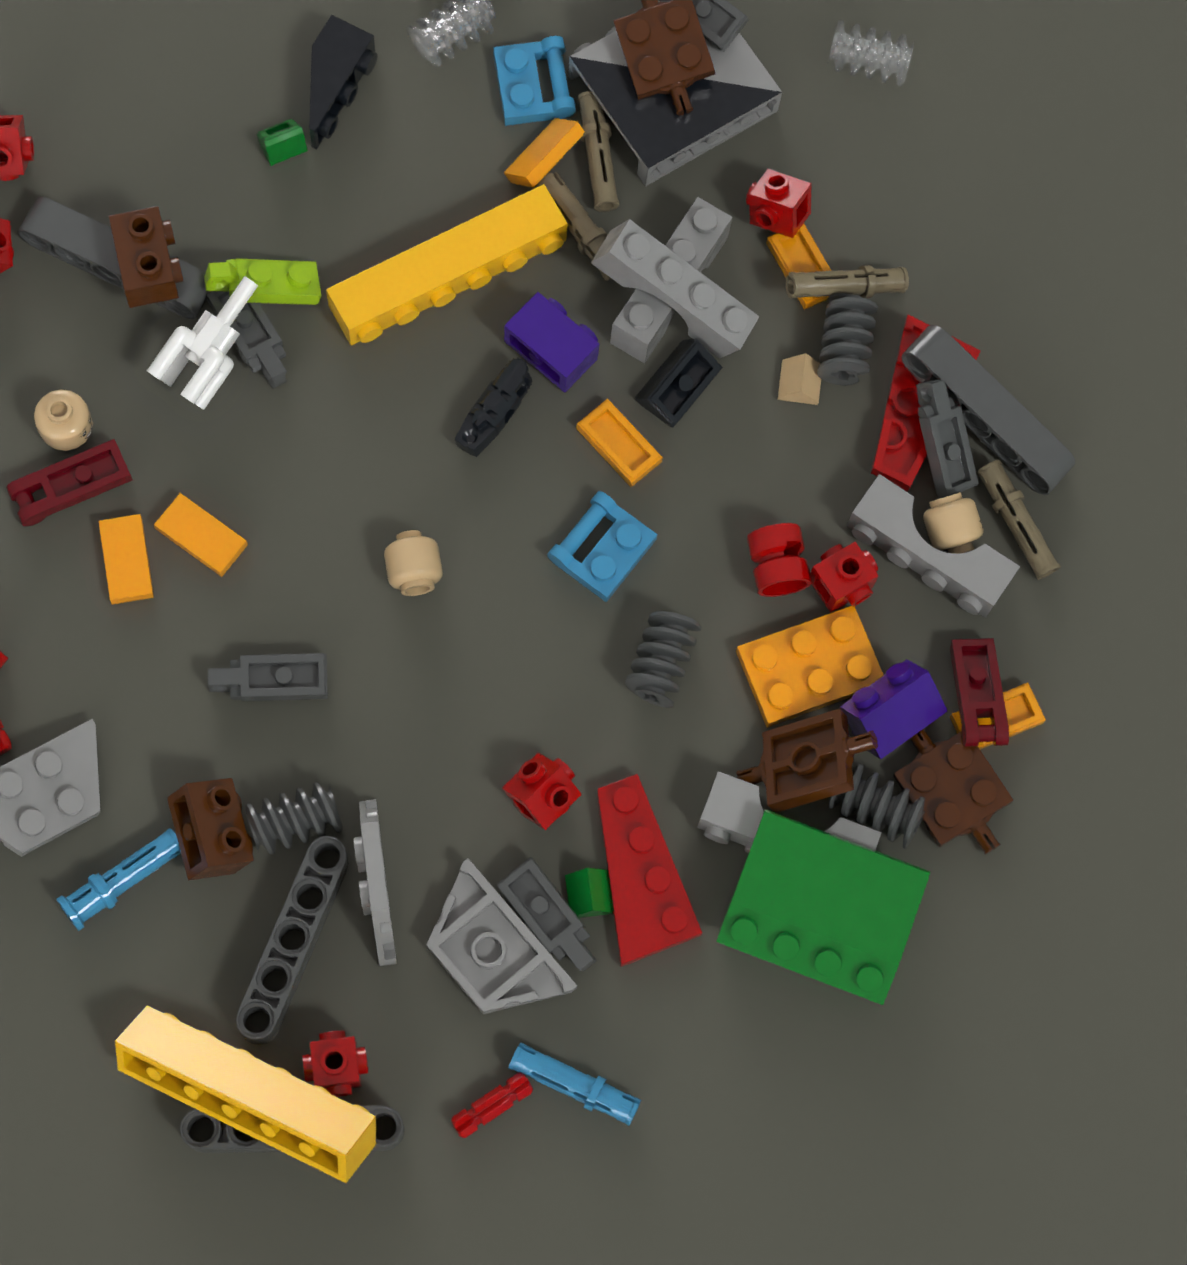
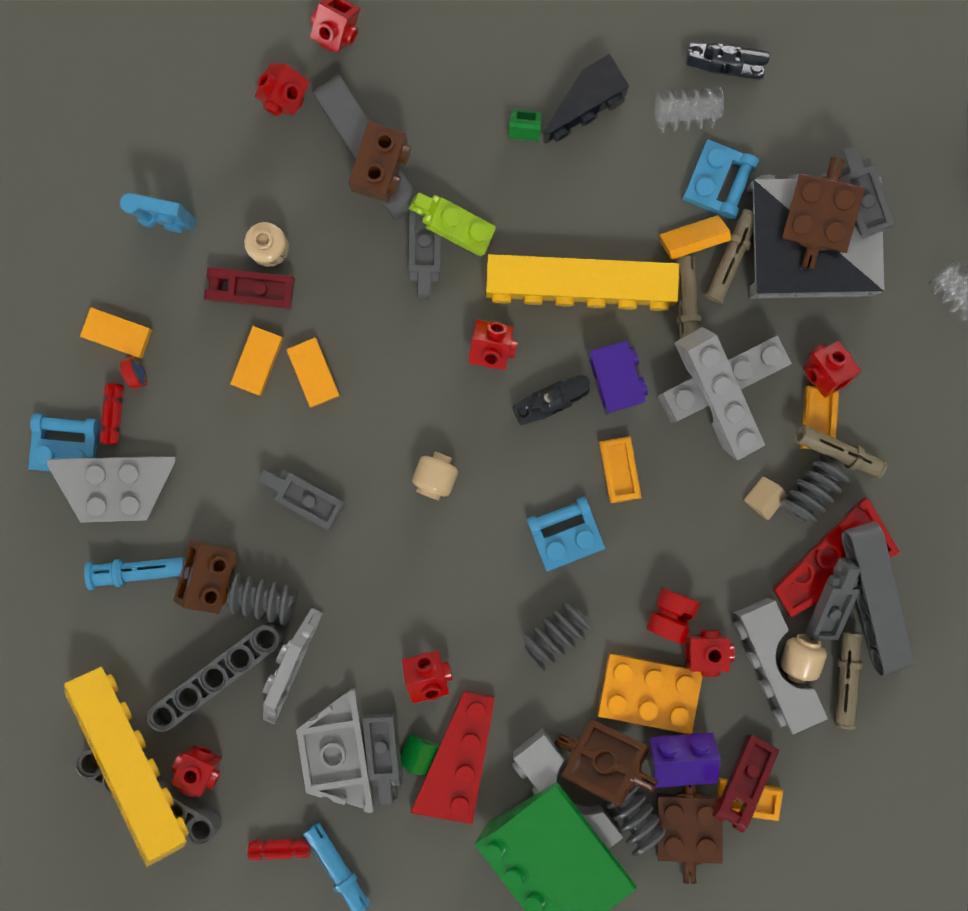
camera: 40 degrees right, 15 degrees up
(204, 346) = (384, 249): white plant -> none
(390, 384) = (492, 345): none -> red brick
(679, 382) = (685, 450): black slope -> none

